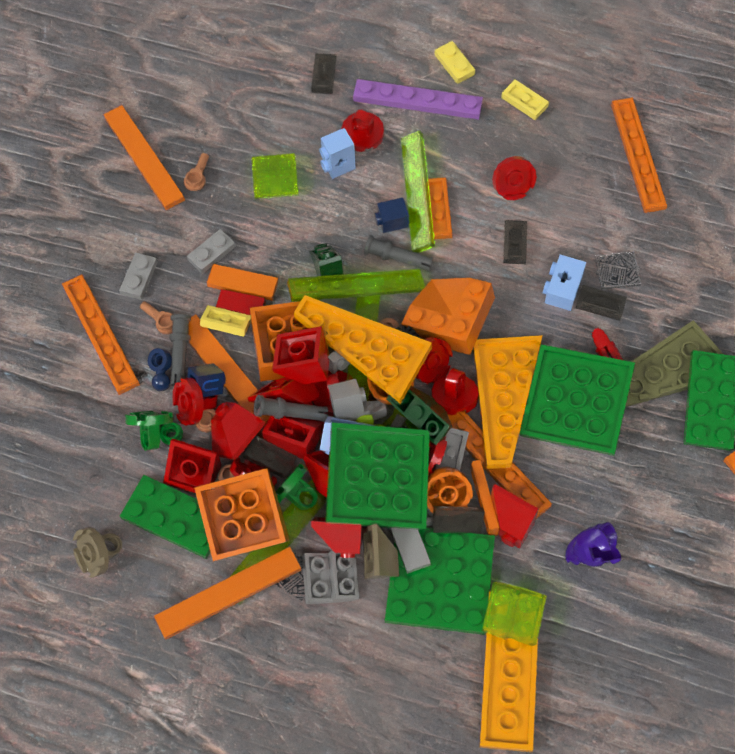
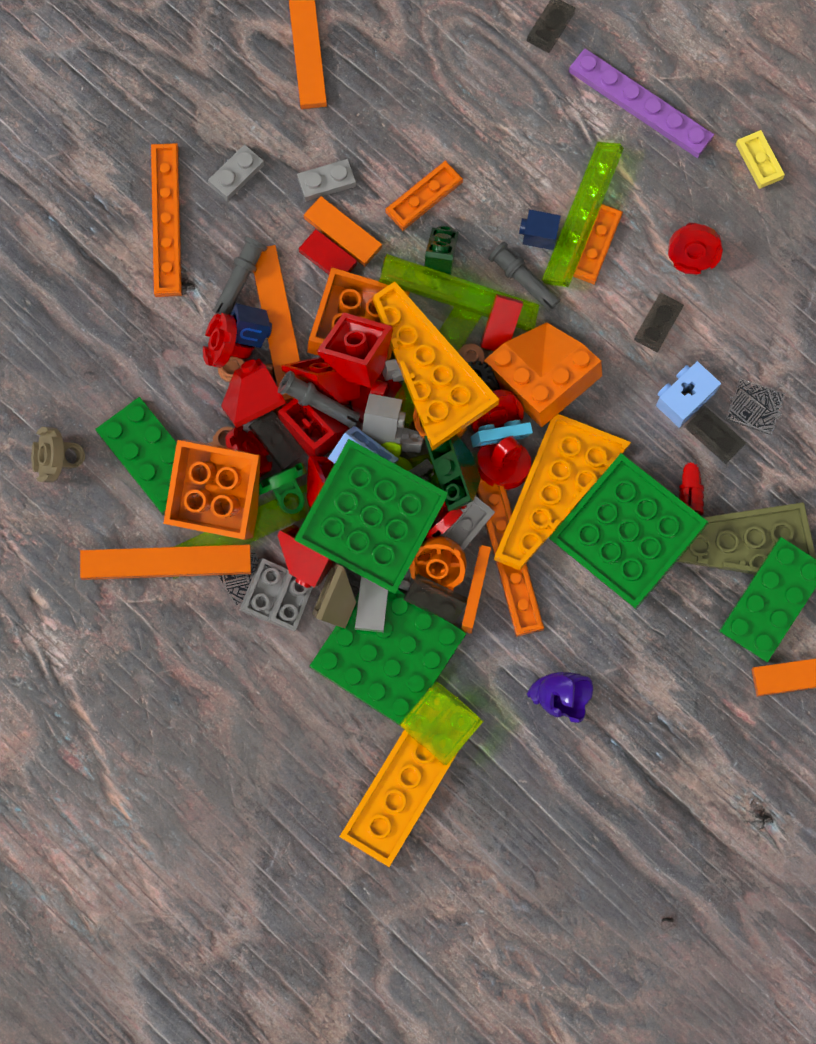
camera: 20 degrees right, 10 degrees up
(149, 426) = (169, 344): green tile -> none
(160, 381) = (212, 281): dark blue plate -> none
(162, 318) = (237, 232): nougat plate -> none
(171, 427) = (188, 357): green plate -> none
(190, 466) = (190, 412): red slope -> none
(194, 178) = (348, 87): nougat plate -> none
(225, 321) = (302, 267): light yellow plate -> none
(274, 176) = (436, 123): clear neon green slope -> none
(291, 230) = (424, 195): none -> orange tile
(337, 153) = (514, 130): light blue brick -> none
(364, 130) = (559, 113): red tile -> none
(399, 292) = (501, 322): none -> red tile
(436, 376) = (490, 435): none -> medium azure plate
(454, 62) = (705, 76): light yellow plate -> none
(513, 515) = (492, 625): red slope -> none

